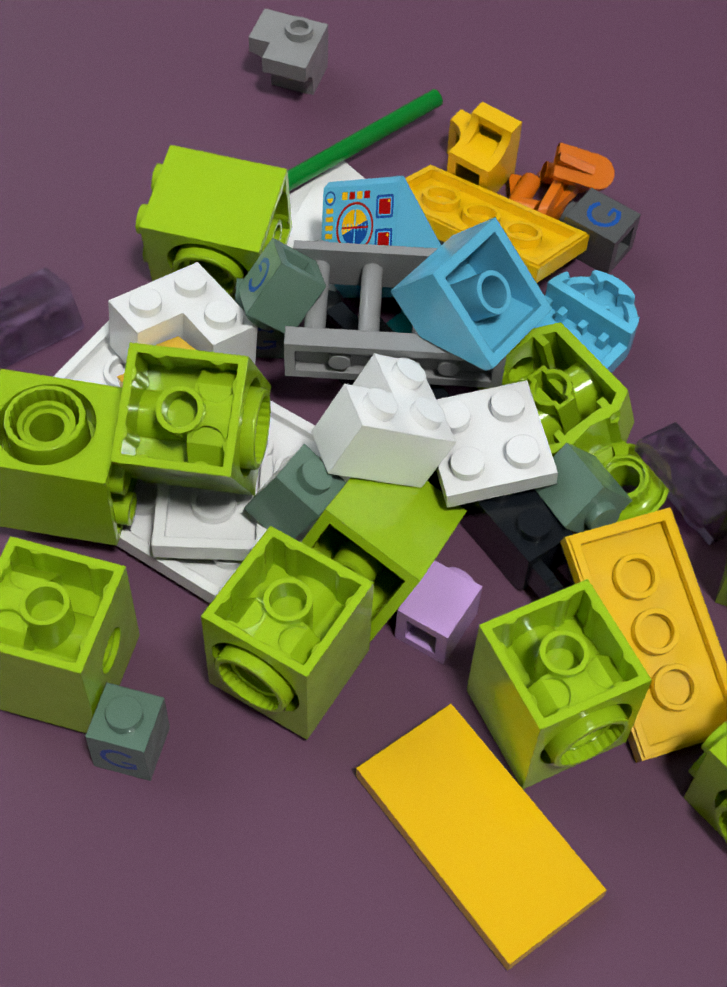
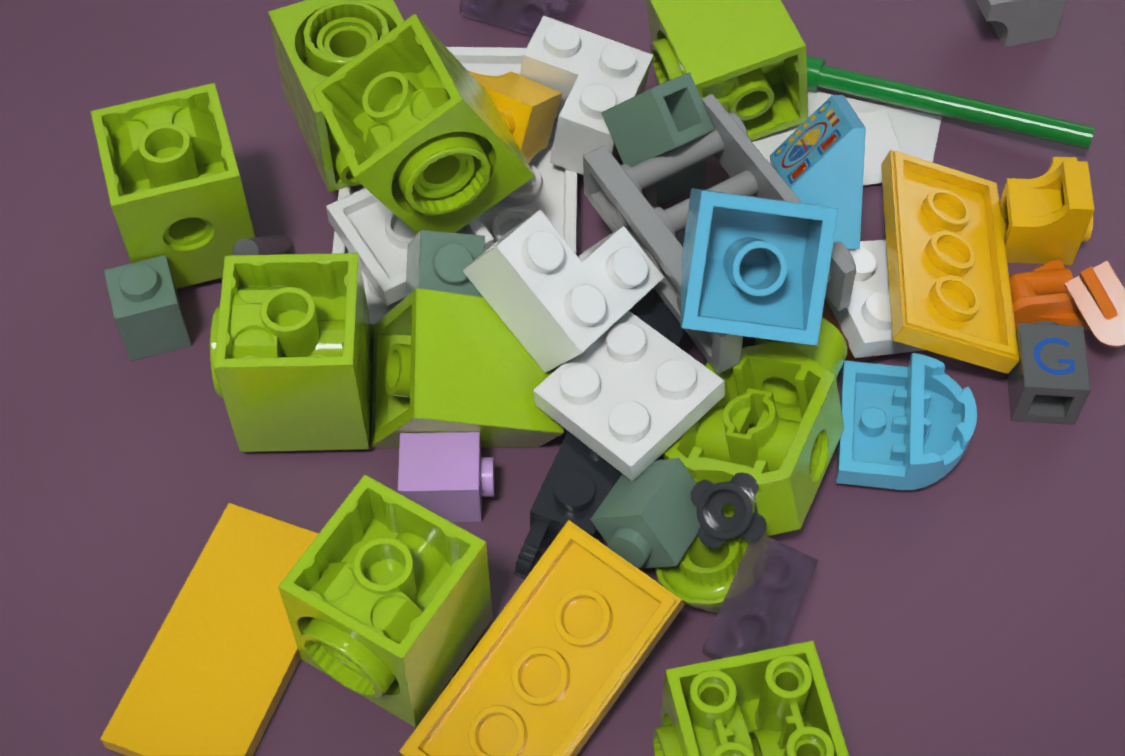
camera: 60 degrees right, 0 degrees up
(172, 606) = (263, 245): none -> dark grey bar
(632, 439) = (717, 527): none -> black plate

